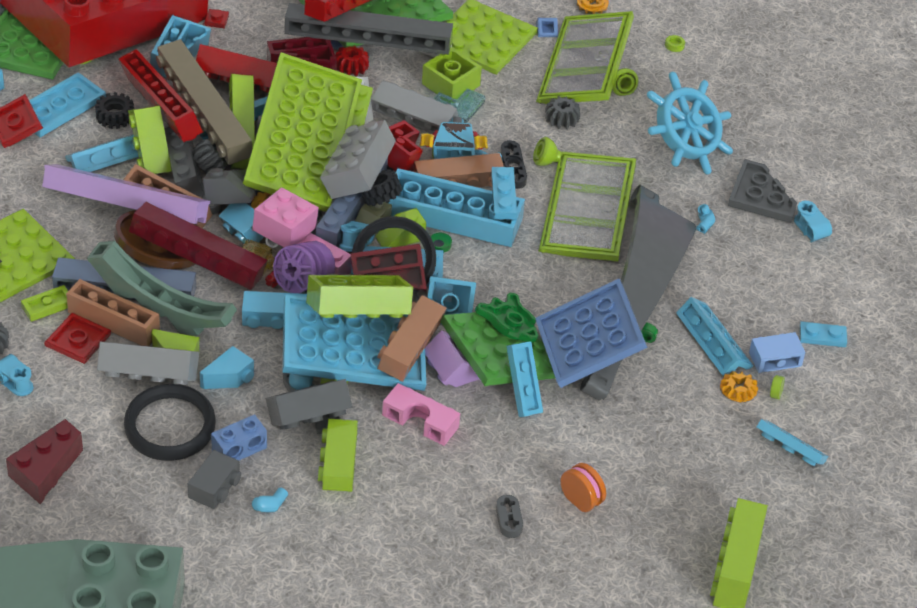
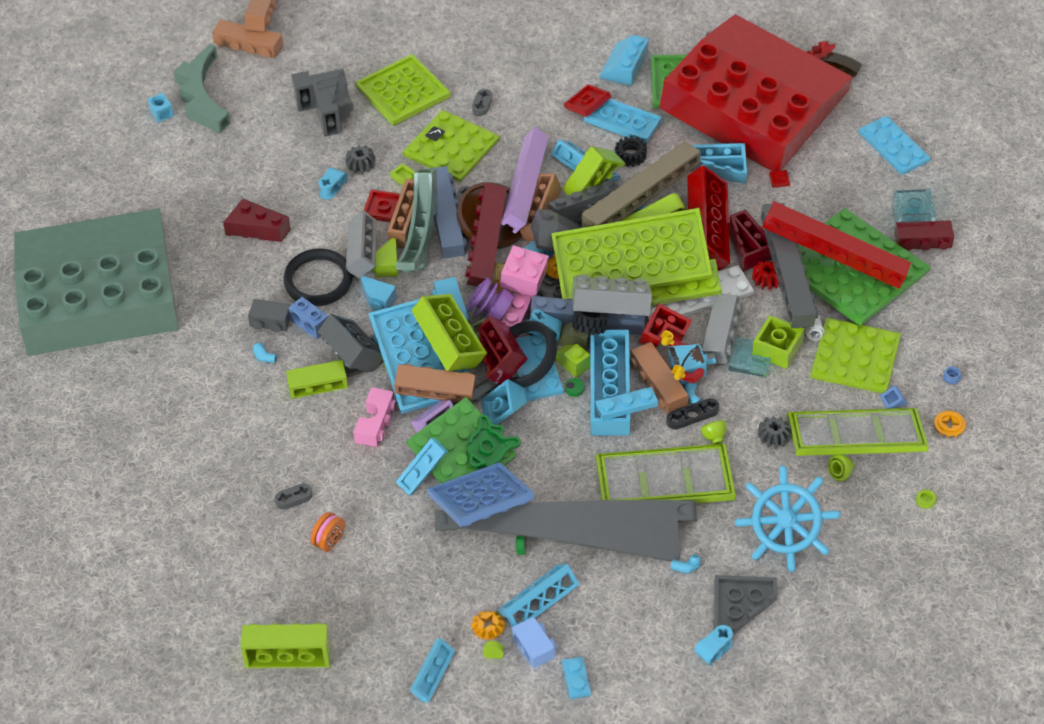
camera: 80 degrees right, 5 degrees up
(159, 93) = (627, 164): red brick -> none

